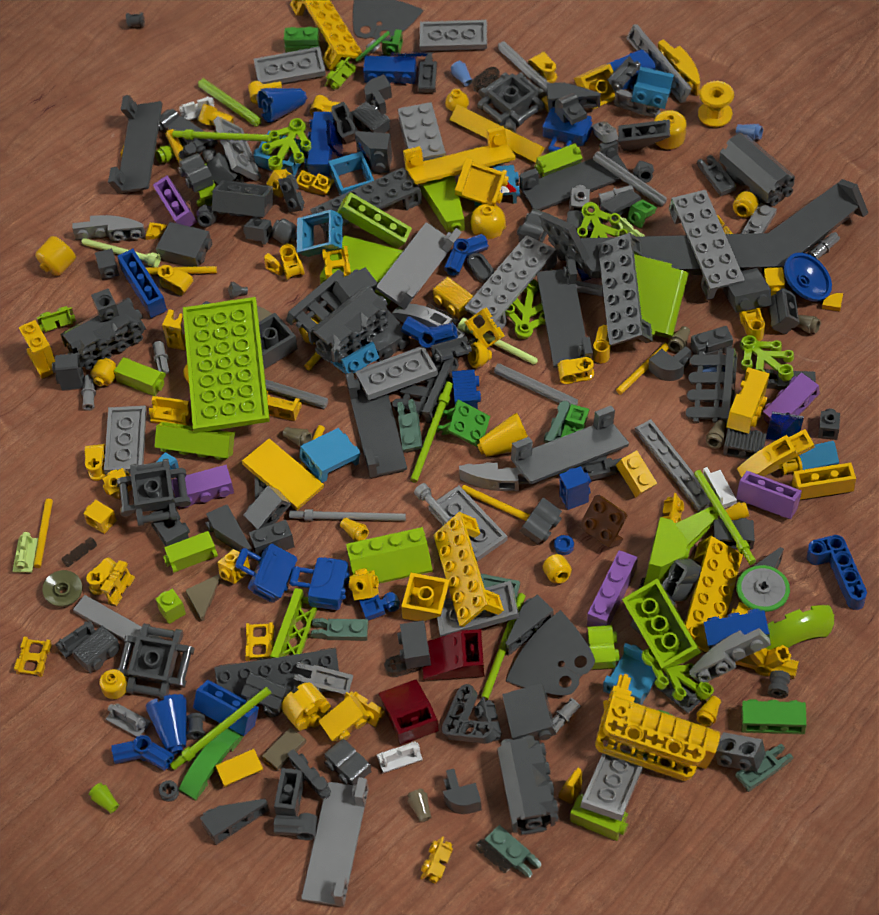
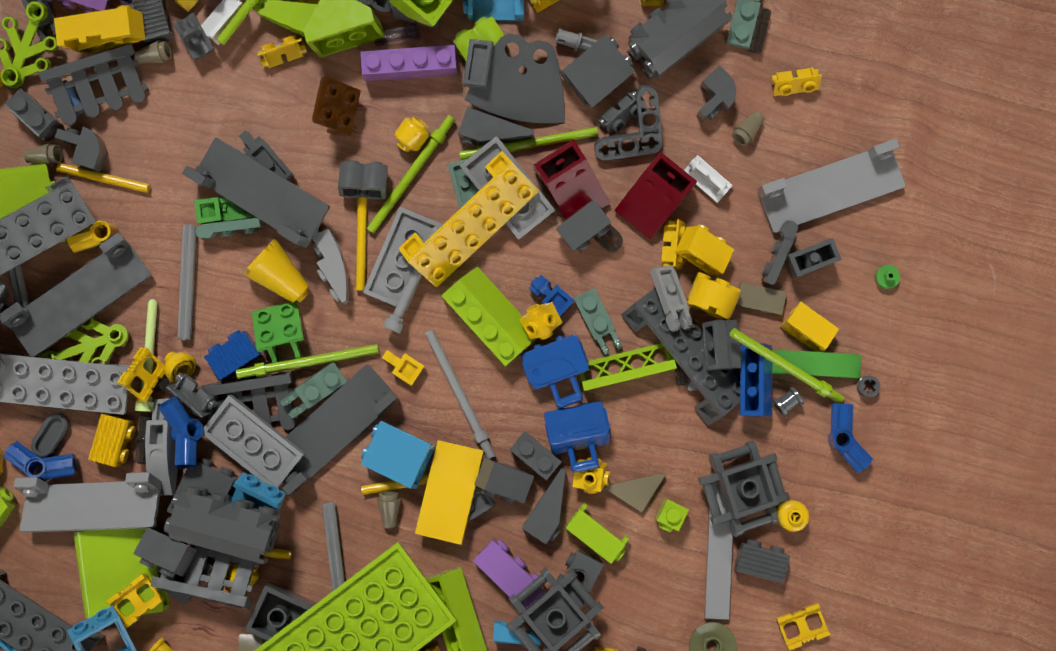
camera: 120 degrees left, 30 degrees up
(72, 640) = (759, 592): dark grey hinge -> none
(100, 575) = (667, 610): yellow piece -> none
(102, 796) = (913, 445): lime cone -> none
(114, 581) = (675, 588): yellow piece -> none
(127, 719) = (817, 477): light grey hinge -> none
(170, 721) = (801, 429): blue cone -> none
(230, 818) = (867, 305): dark grey slope -> none
(241, 849) = (882, 277): none -> bright green tile
(254, 641) = (653, 390): yellow piece -> none
(283, 408) = (357, 549): yellow hinge -> none
(300, 826) = (836, 227): dark grey piece -> none
(347, 763) = (744, 224): dark grey brick -> none
(354, 529) = (474, 374): yellow cone -> none
(374, 220) = (52, 590): lime brick -> none
(390, 489) = (405, 368): none -> yellow plate
(424, 597) = (522, 247): yellow slope -> none
(545, 586) = (437, 137): none -> lime bar
(563, 544) = (375, 146): blue tile -> none
(574, 487) = (305, 163): blue brick -> none
(575, 371) = (147, 250): yellow piece -> none
(581, 629) = (478, 64): none -> dark grey tile
(636, 474) = (254, 107): yellow brick -> none
(673, 464) = (214, 83): light grey tile -> none
(714, 461) = (194, 37): none -> dark grey hips

